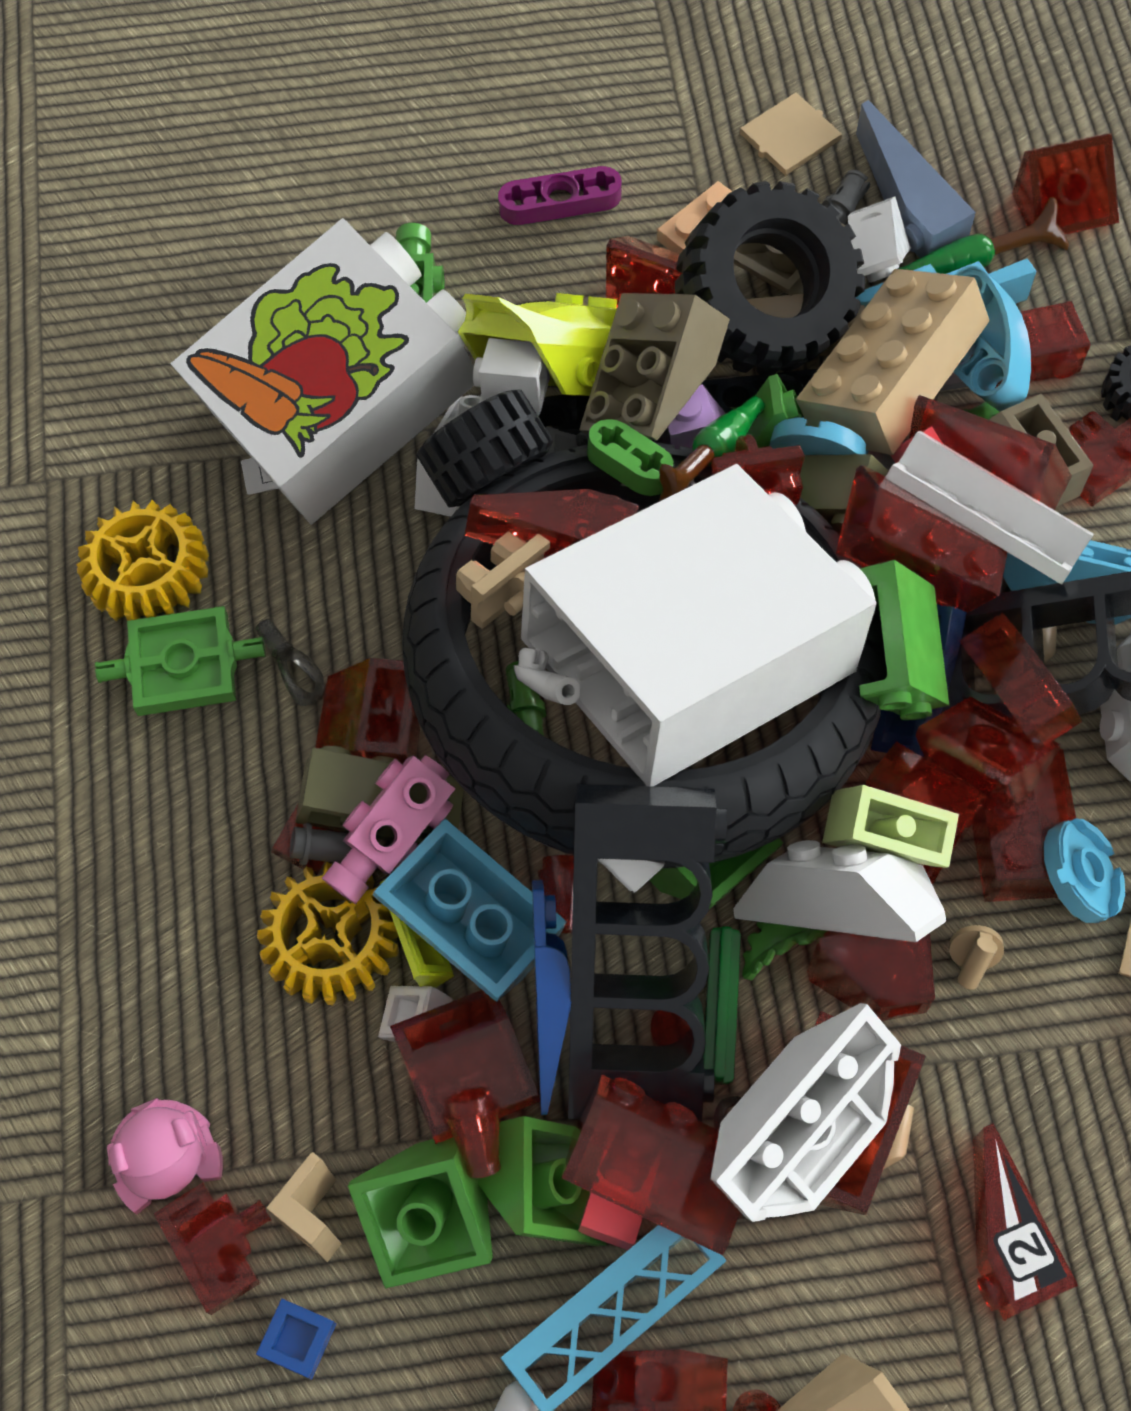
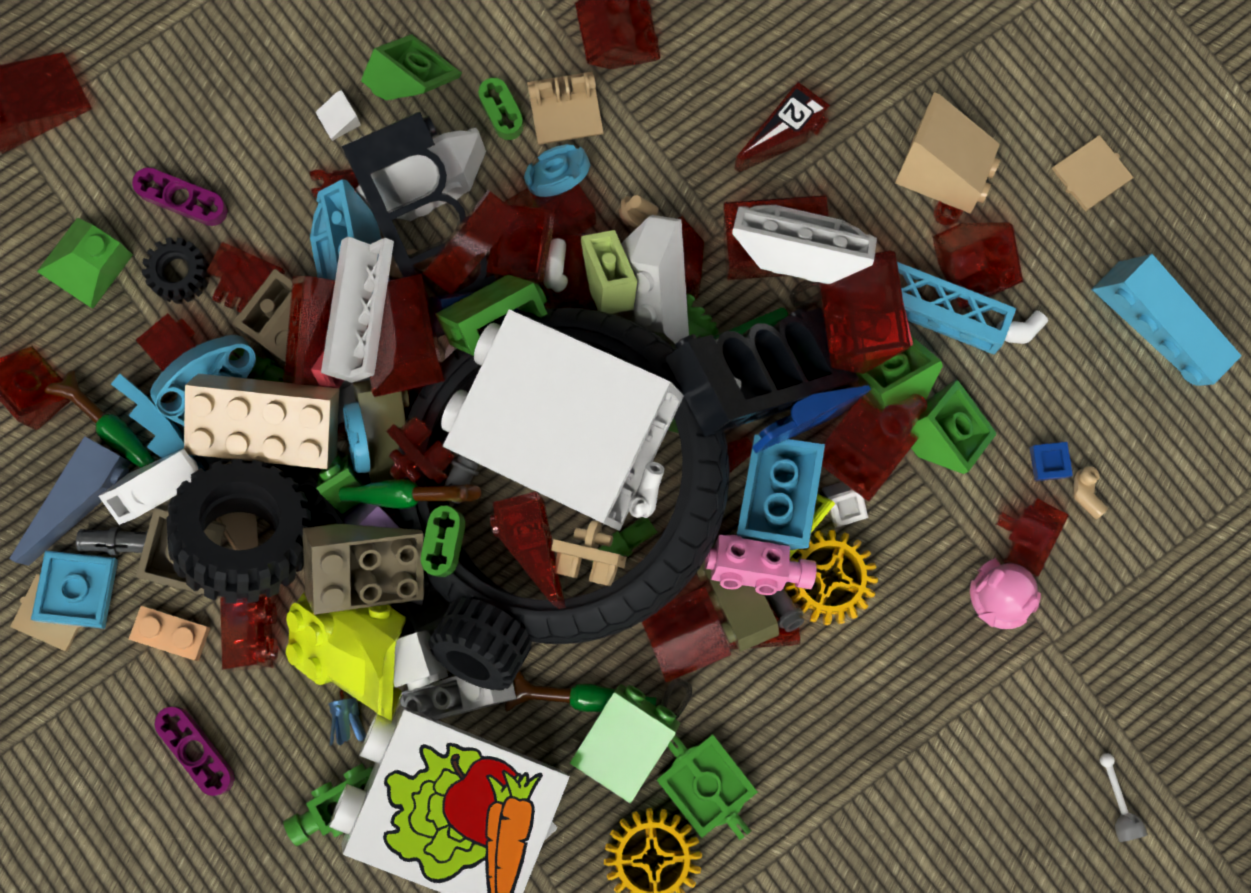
camera: 120 degrees left, 15 degrees up
(224, 1366) = (1085, 491): none -> tan arm
(286, 588) = (626, 742): none -> panel
(299, 1198) = (998, 488): tan panel -> none
(370, 581) = (581, 696): none -> piece
(803, 153) = (74, 589): none -> medium azure tile
(937, 767) = (555, 264): none -> white arm

